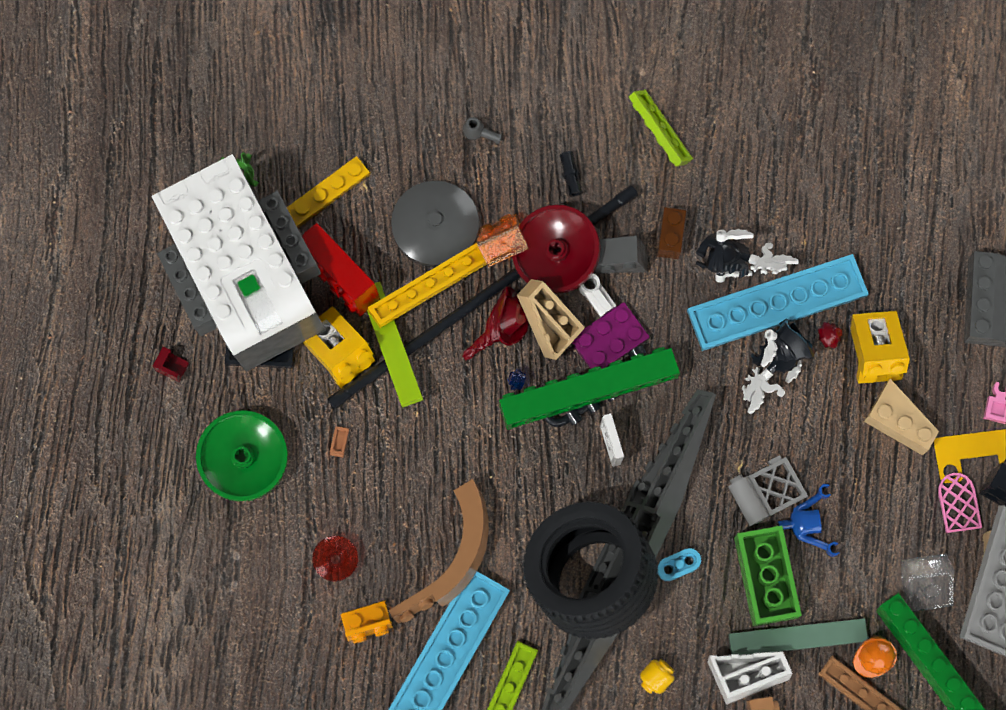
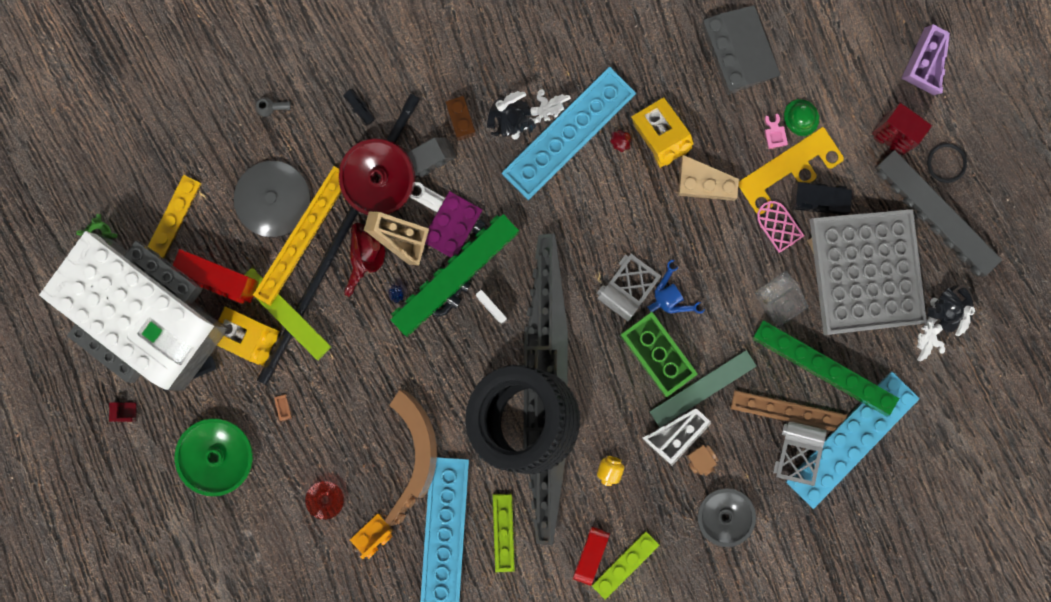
camera: 25 degrees left, 10 degrees up
(501, 239) = (330, 190): clear orange bracket -> none
(660, 127) = (412, 35): lime plate -> none
(678, 564) = (587, 377): medium azure plate -> none
(785, 351) = (591, 175): helmet -> none
(875, 657) = (767, 375): orange piece -> none

